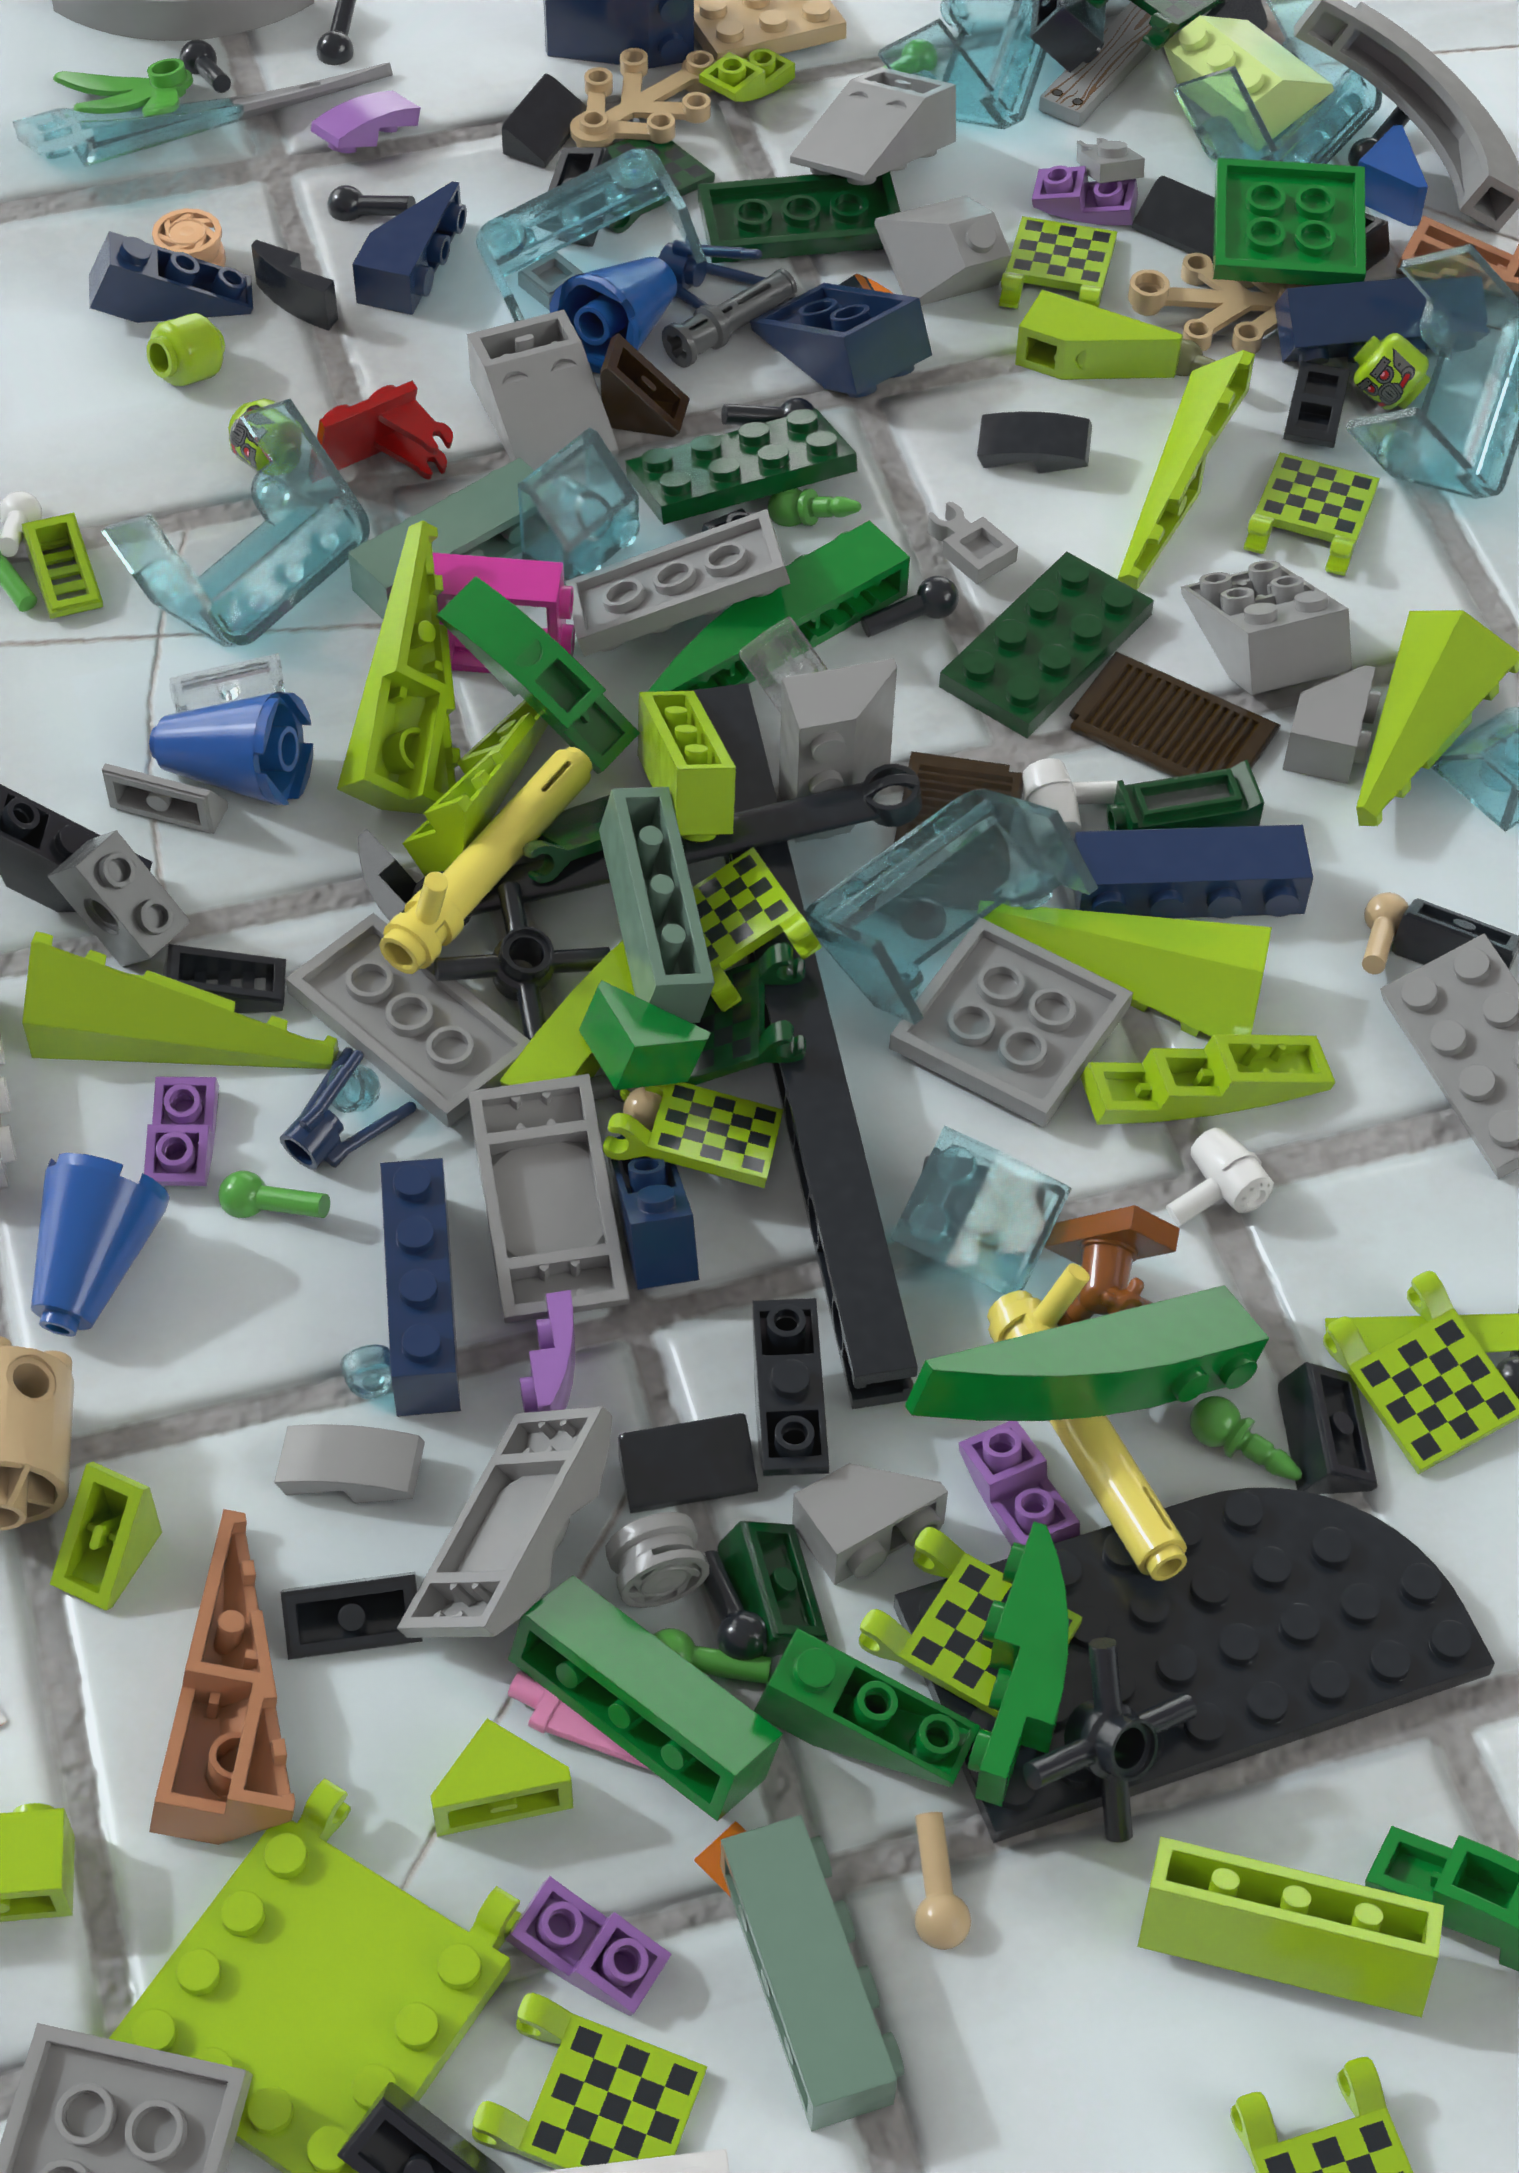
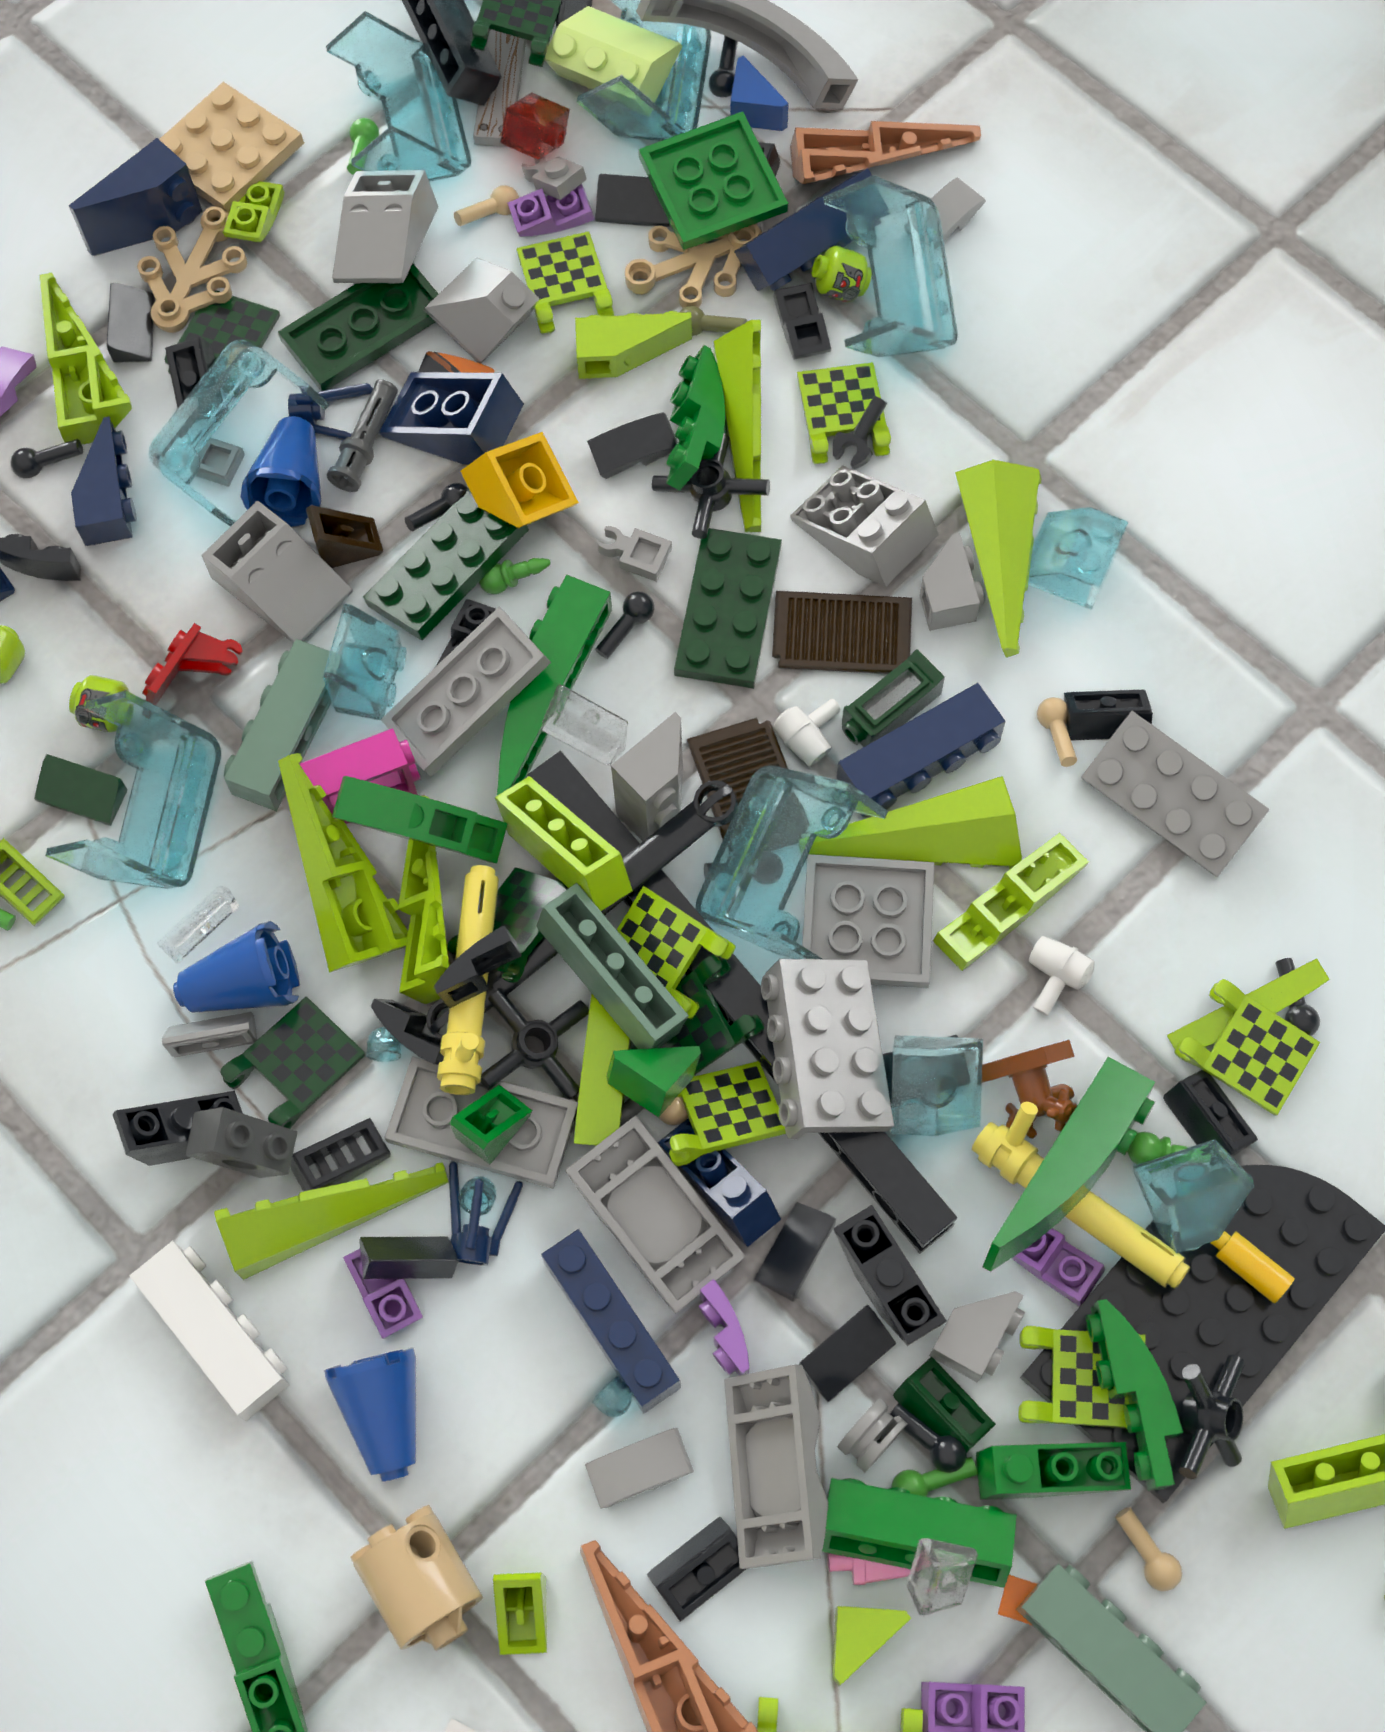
camera: 25 degrees left, 15 degrees up
(190, 510) = (79, 789): none -> dark green slope
(225, 1107) = (407, 1257): none -> black slope
(241, 867) = (299, 1057): none -> dark green flag
(246, 1194) = (451, 1307): bright green bar -> none
(348, 894) = (383, 1046): none -> clear light blue hinge
(411, 1007) = (490, 1122): none -> green slope
(459, 136) = (81, 378): none -> lime wedge
(485, 827) = (465, 975): none -> slope
(642, 1752) = (940, 1575): none -> clear slope
(695, 1329) = (795, 1250): none -> black slope
(868, 1104) = (826, 1047): none -> bracket
(874, 407) = (520, 482): none -> yellow slope
(1011, 167) = (495, 204): none -> tan bar
(1100, 512) = (713, 488): none -> black bar
(1114, 106) = (535, 126): none -> clear red head
(1123, 440) = (699, 414): none -> green slope
(1238, 1483) = (1193, 1193): none -> clear light blue slope
(1274, 1602) = (1253, 1265): none -> yellow cylinder
(1312, 538) = (859, 435): none -> black bar

